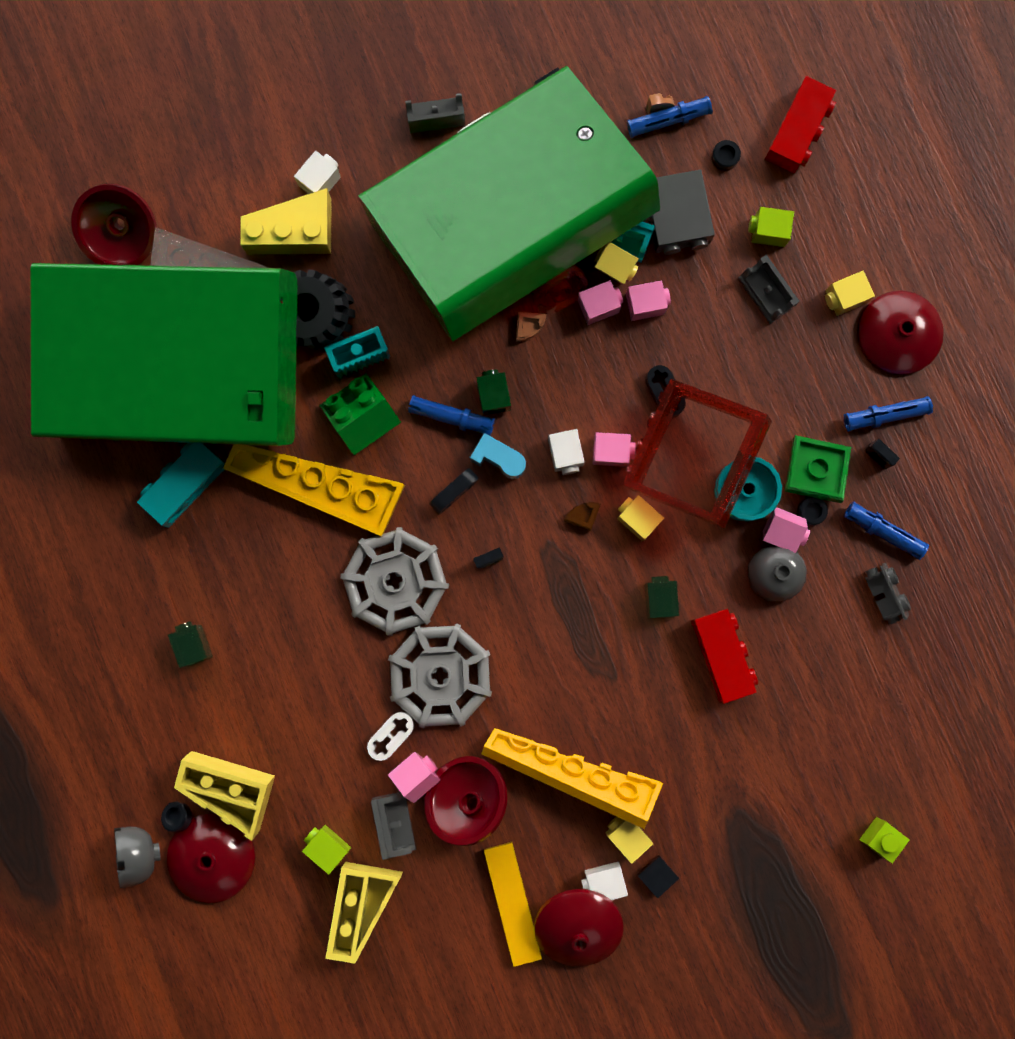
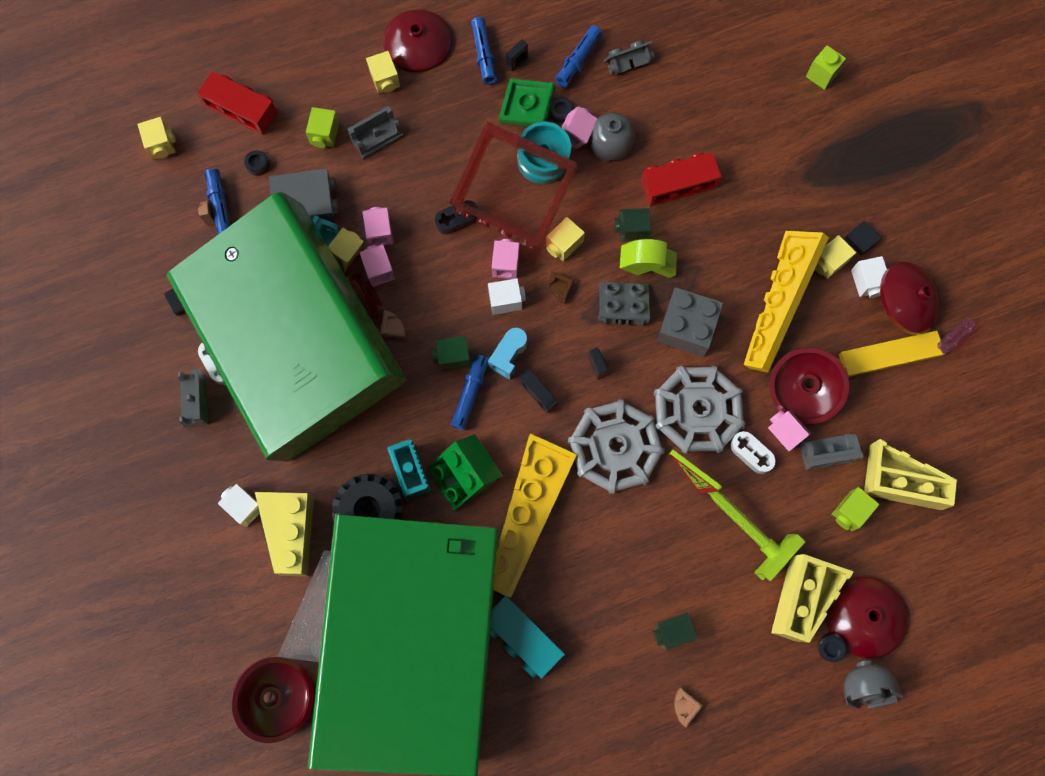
camera: 85 degrees left, 10 degrees down
(114, 658) = (685, 707): none -> nougat tile
(273, 758) = (776, 554): none -> lime piece
(535, 982) = (957, 335): none -> clear pink axle
(541, 664) = (689, 322): none -> dark grey brick
(565, 588) = (625, 302): none -> dark grey hinge
(618, 616) = (647, 256): none -> lime brick
(749, 37) = (157, 138): none -> light yellow brick

